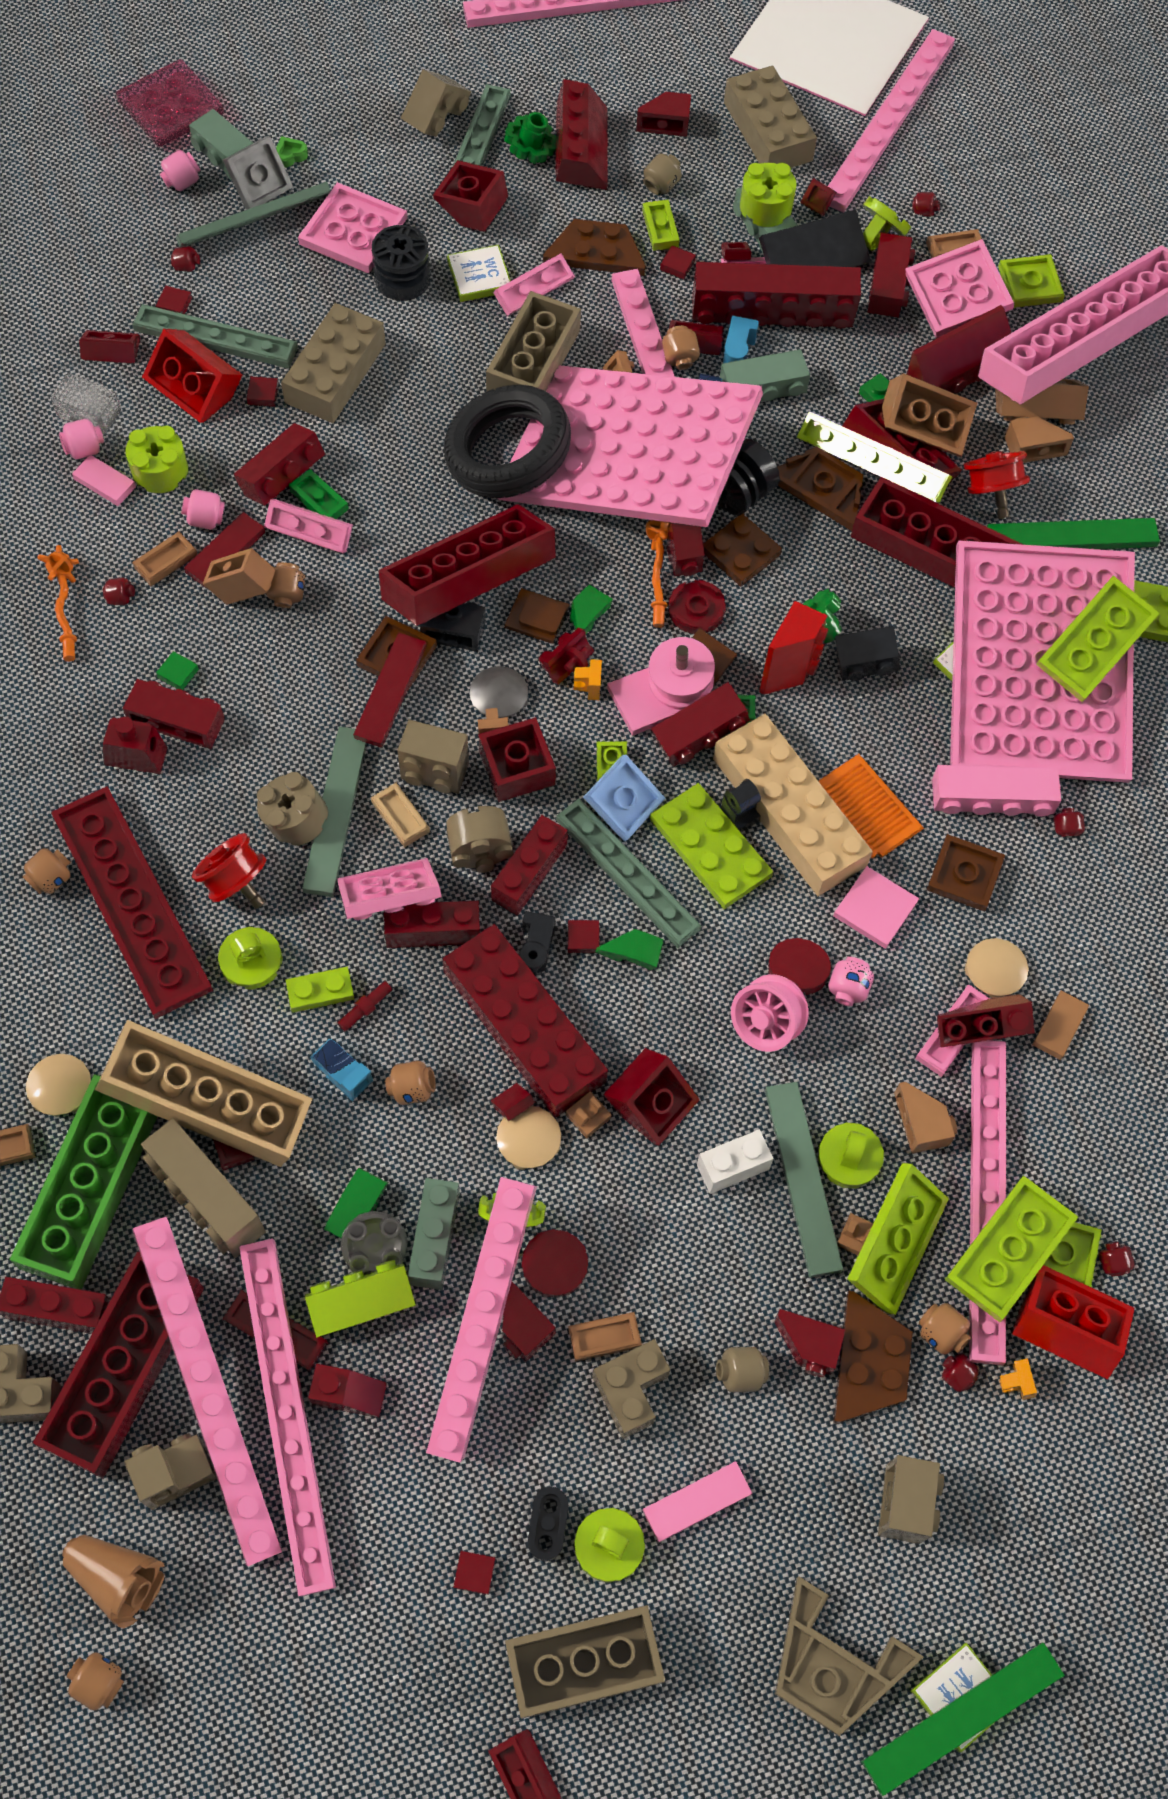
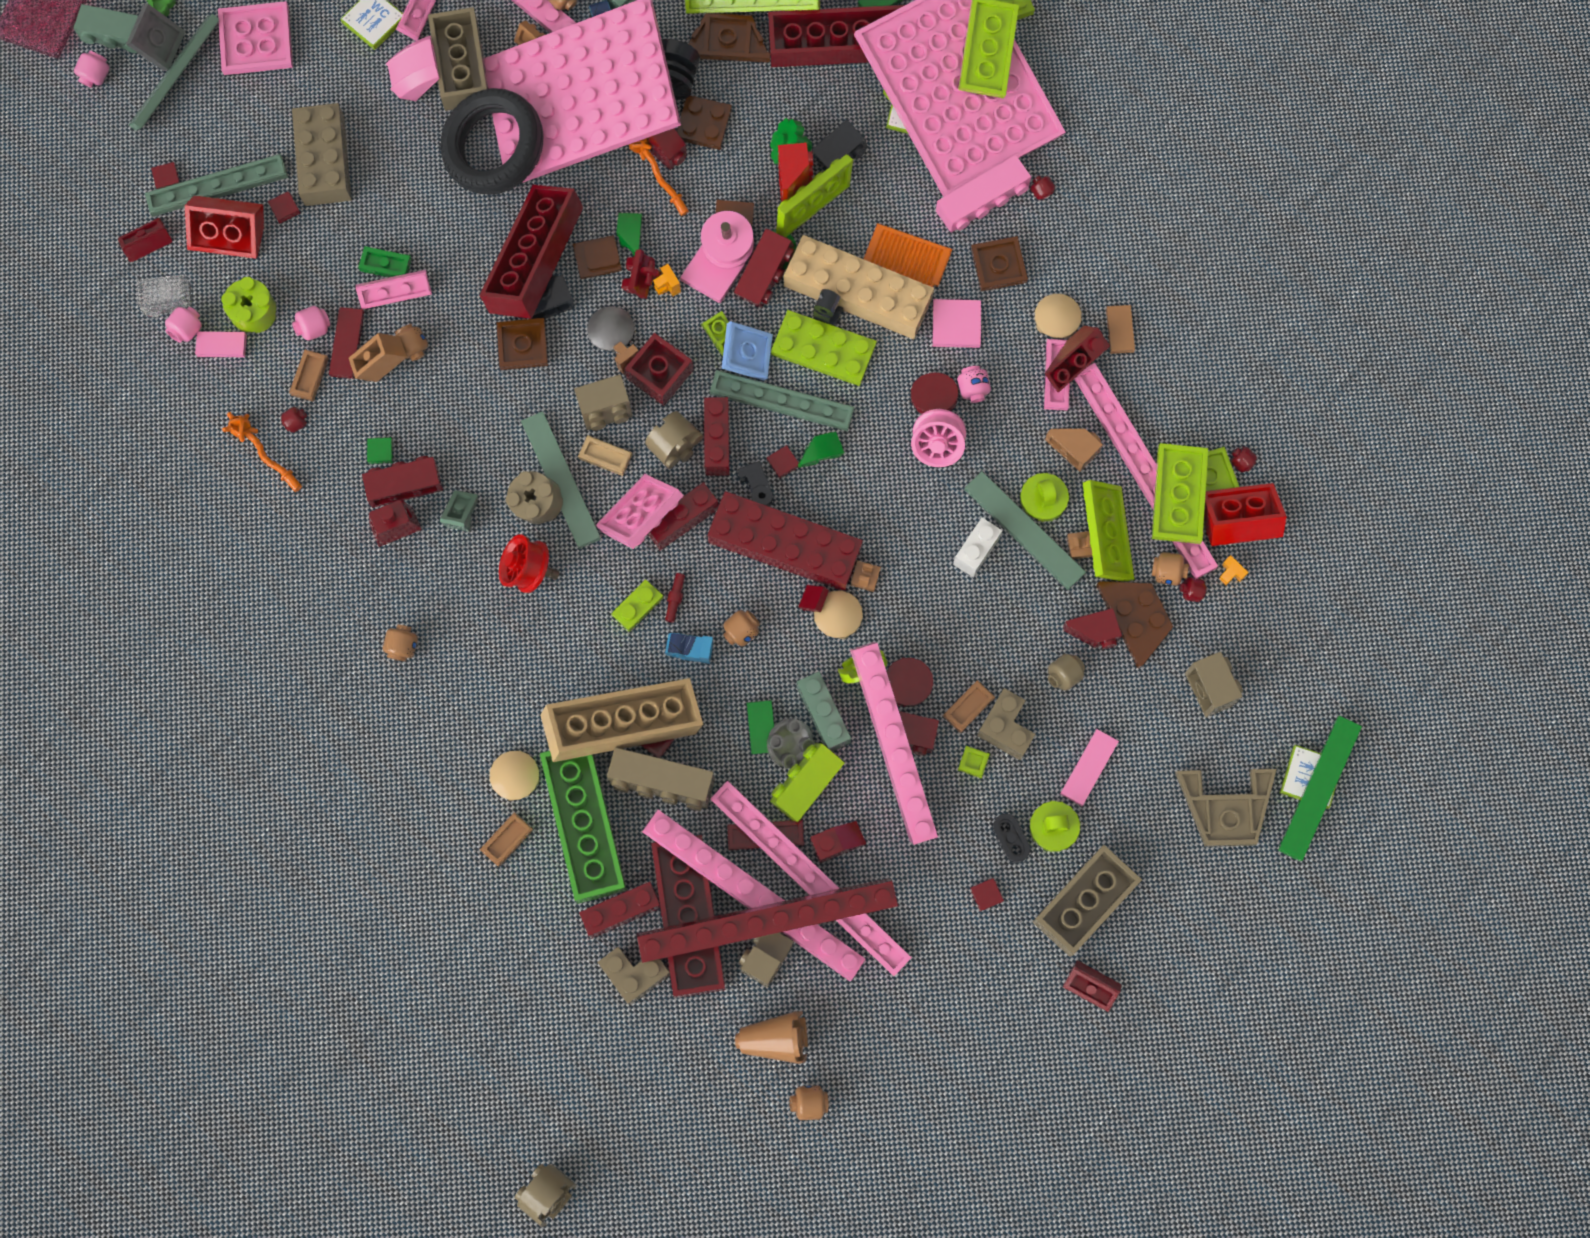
camera: 30 degrees left, 10 degrees up
(132, 902) = (470, 626): dark red plate -> none
(185, 258) = (147, 137): dark red piece -> none
(193, 1424) = (766, 920): none -> dark red brick
(206, 775) = (459, 511): none -> sand green slope
(250, 957) = (576, 614): lime tile -> none
(279, 464) = (340, 256): dark red brick -> none
(390, 690) = (539, 373): dark red tile -> none
(401, 262) = (314, 46): black wheel -> none
(479, 334) = (413, 69): none -> bright pink slope
(566, 1404) = (973, 762): none -> lime tile
(652, 1095) = (898, 538): dark red slope -> none
(697, 606) = (701, 183): dark red tile -> none
(804, 682) = (814, 196): none -> lime plate

